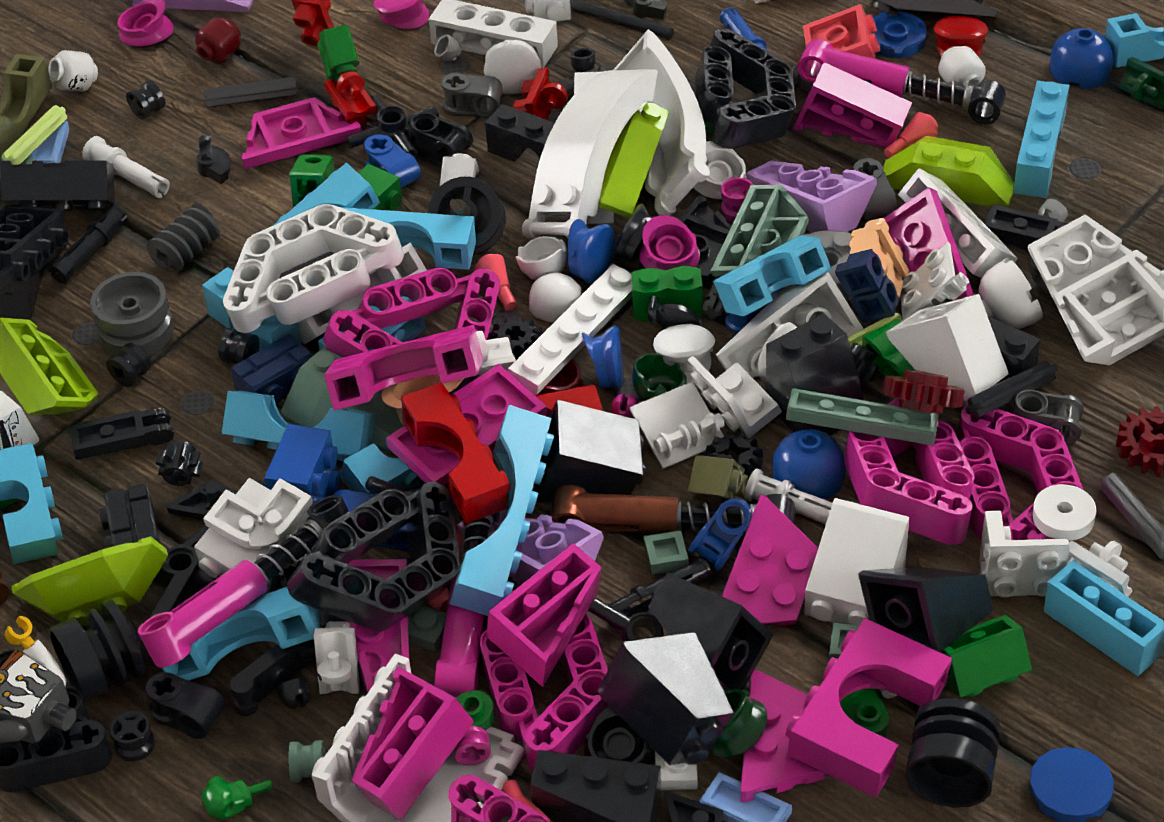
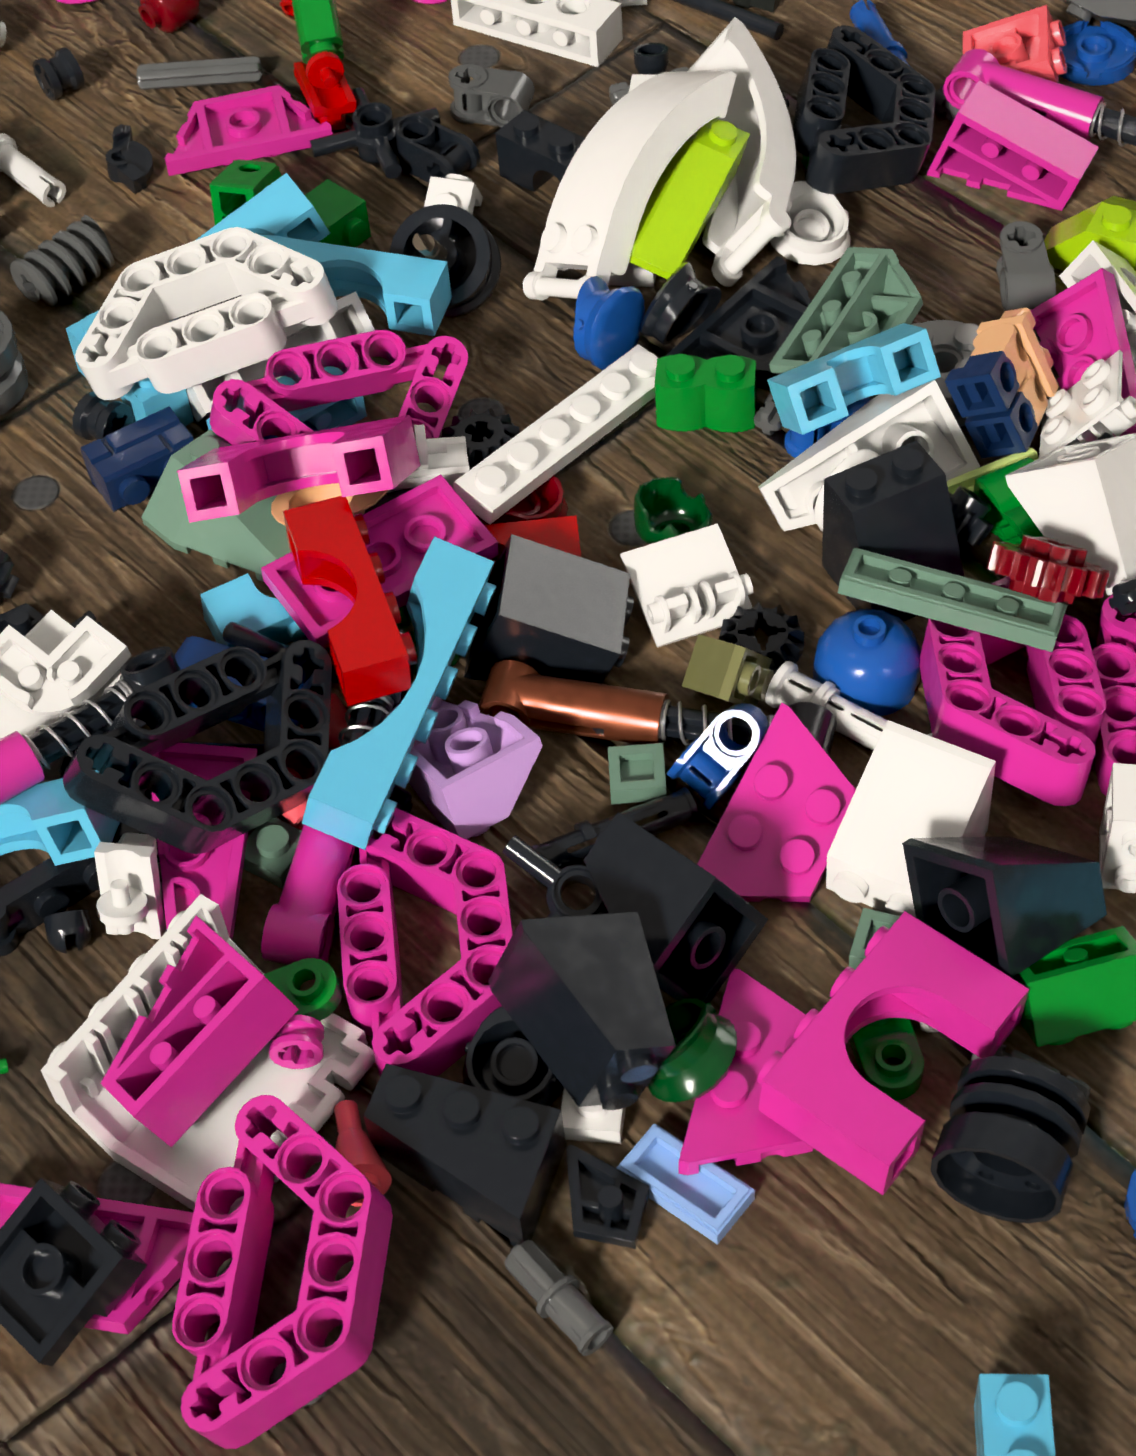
camera: 10 degrees right, 5 degrees up
(256, 417) = (103, 522): medium azure arch -> none
(303, 758) = (51, 1029): sand green wheel -> none
(306, 462) = (145, 597): blue brick -> none
(391, 158) = (363, 176): blue piece -> none
(447, 48) = (471, 32): light grey hinge -> none
(497, 264) = (475, 337): coral cone -> none
(512, 64) = (553, 60): white piece -> none
(541, 95) = (581, 102): red hips -> none
(542, 257) = (541, 328): white hair -> none
(545, 612) = (433, 852): dark pink wedge -> none
(552, 296) = (545, 381): white hair -> none
(607, 357) = (602, 478): blue piece -> none
(623, 400) = (614, 542): dark pink hinge -> none
(668, 244) = (717, 322): dark pink piece -> none
(671, 314) = (711, 430): black piece -> none
(681, 343) = (723, 473): white piece -> none
(733, 194) = (822, 257): dark pink wheel -> none
(737, 396) = (777, 553): white bracket -> none
(828, 199) = (953, 274): lavender wedge -> none
(918, 127) = (1105, 182): coral cone -> none

